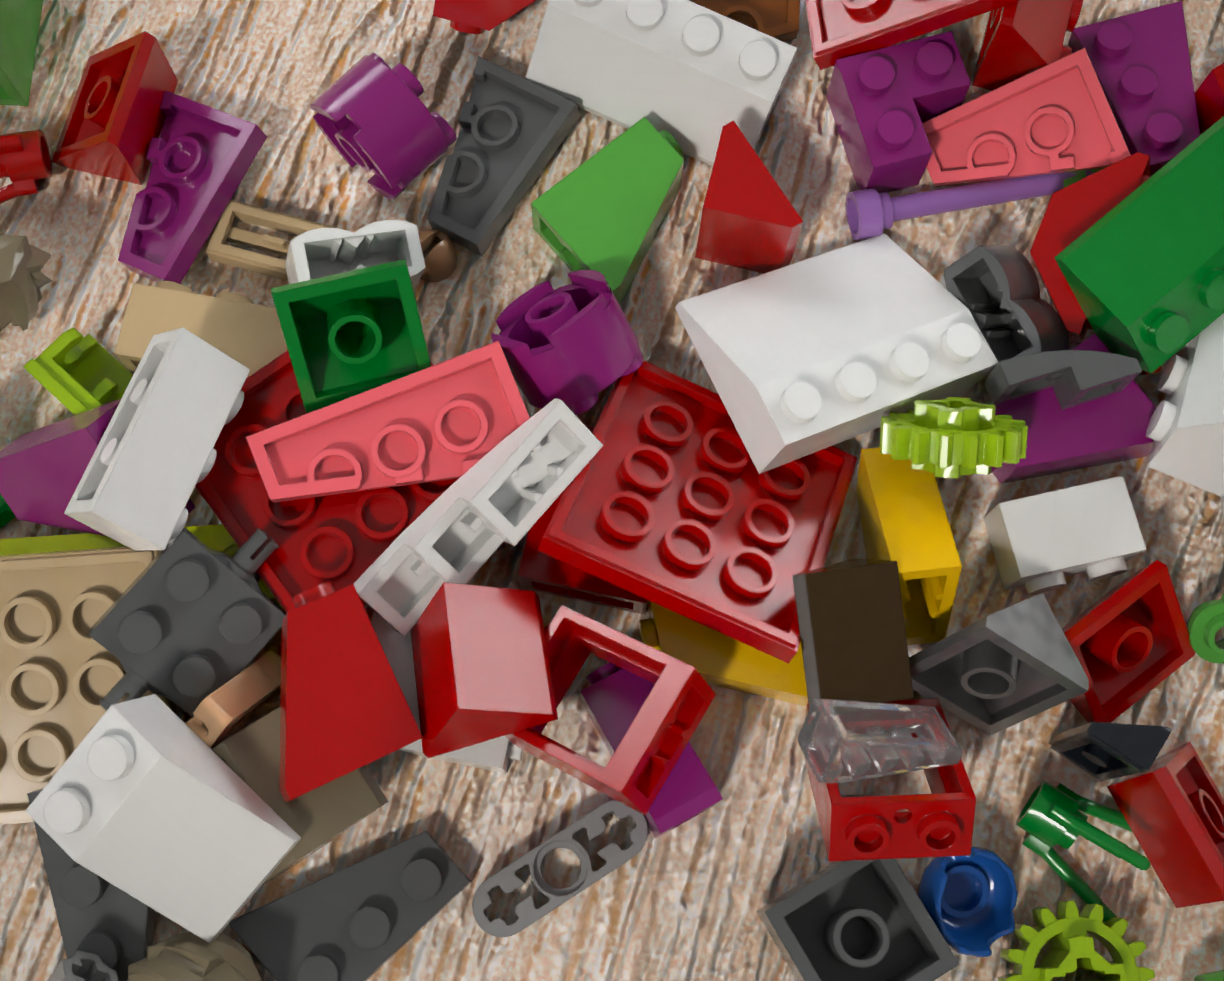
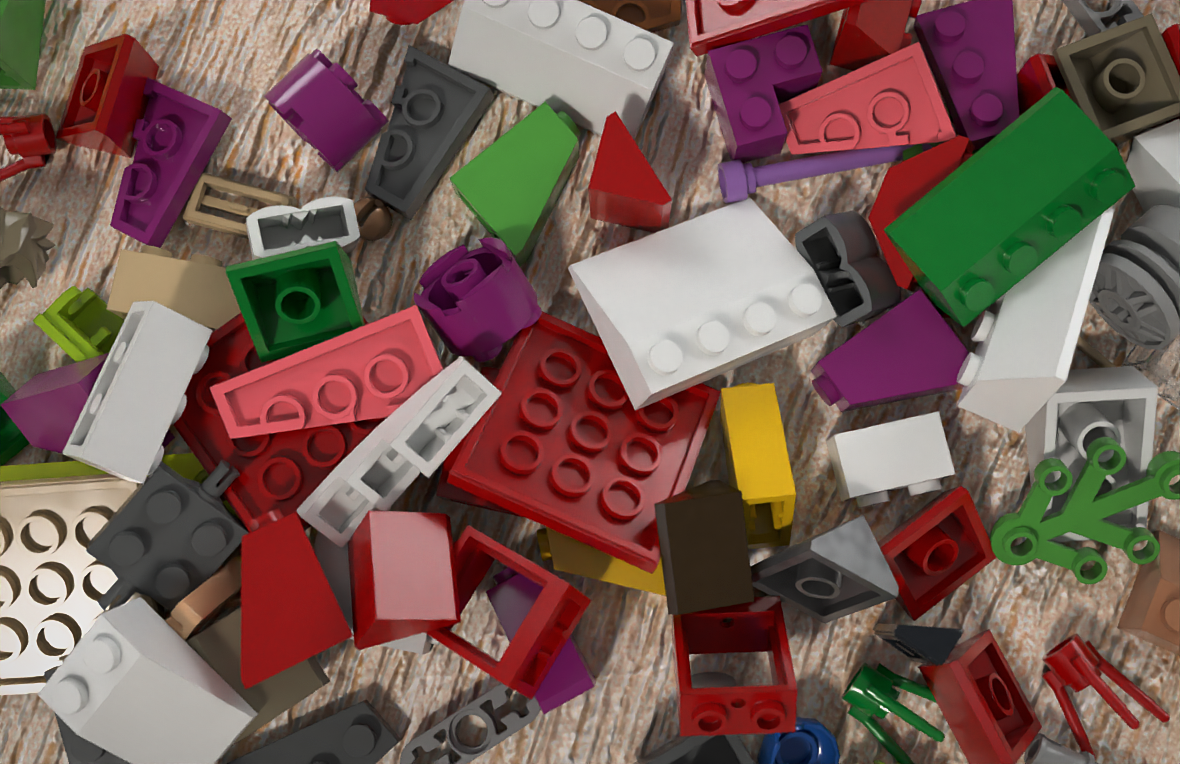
camera: 10 degrees right, 5 degrees up
(873, 740) = (691, 652): clear slope -> none
(953, 437) = (793, 384): lime gear -> none
(1073, 374) = (899, 329): dark grey slope -> none

